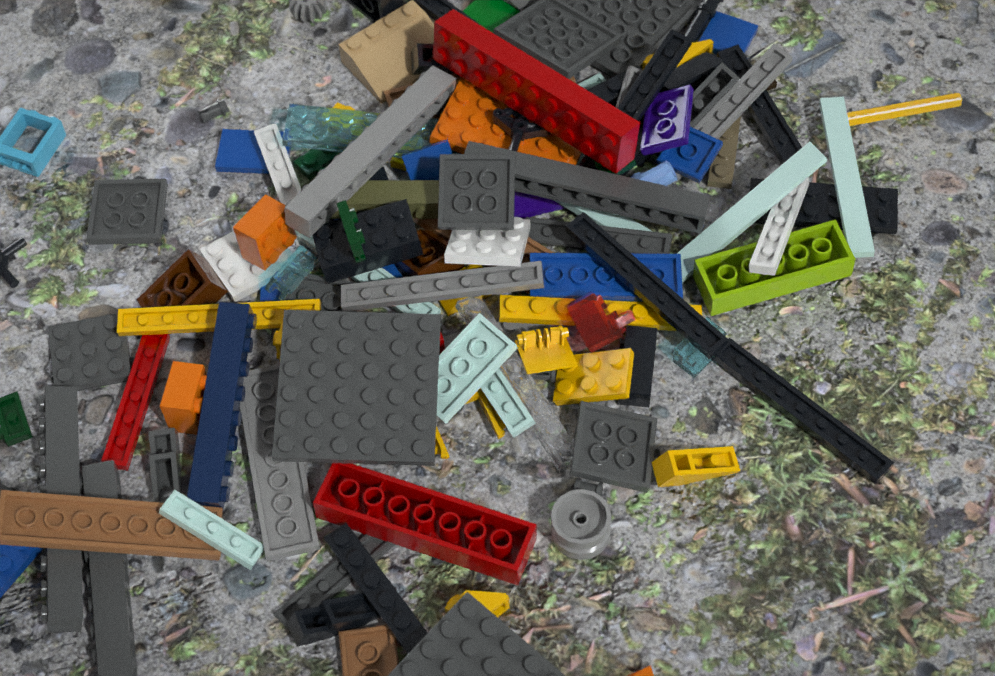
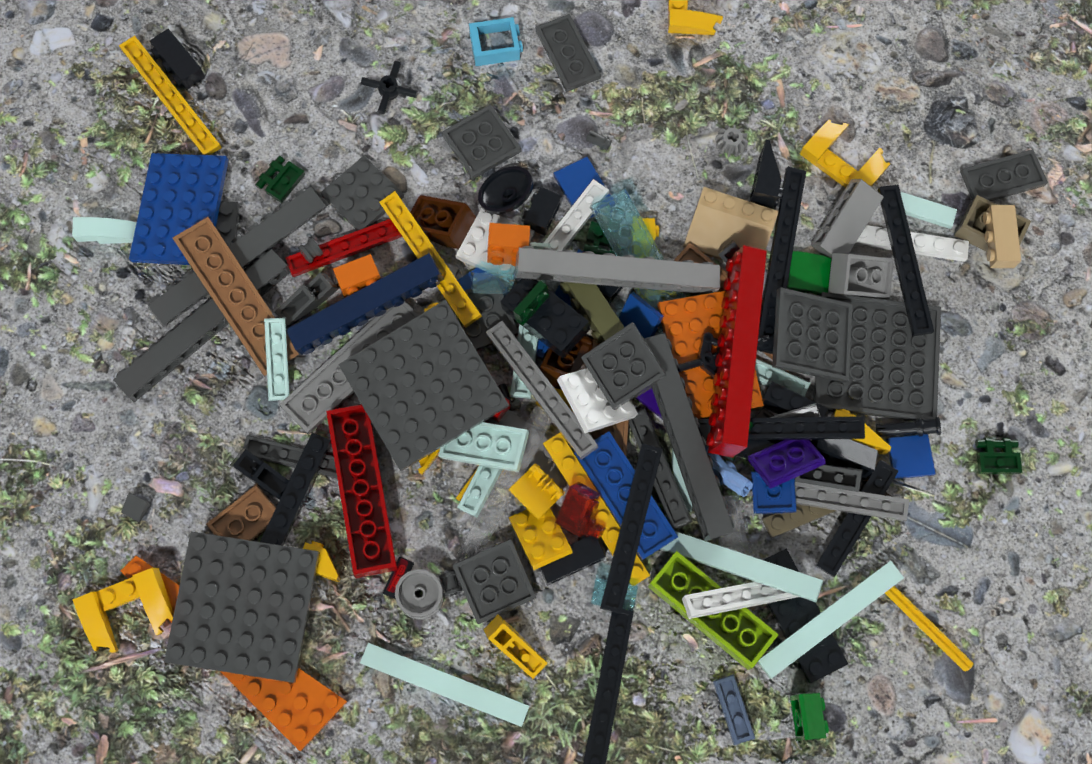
camera: 50 degrees right, 15 degrees up
(97, 87) = (568, 53): none -> dark grey plate
(116, 427) = (310, 250): none -> dark grey wheel
(200, 212) = (505, 190): none -> black dish
(243, 191) = (543, 208): none -> black piece
(547, 549) = (403, 567): none -> sticker
(691, 559) = (444, 684): none -> light aqua tile
(883, 308) = (733, 709): none -> sand blue tile
(929, 247) = (808, 716): none -> green slope

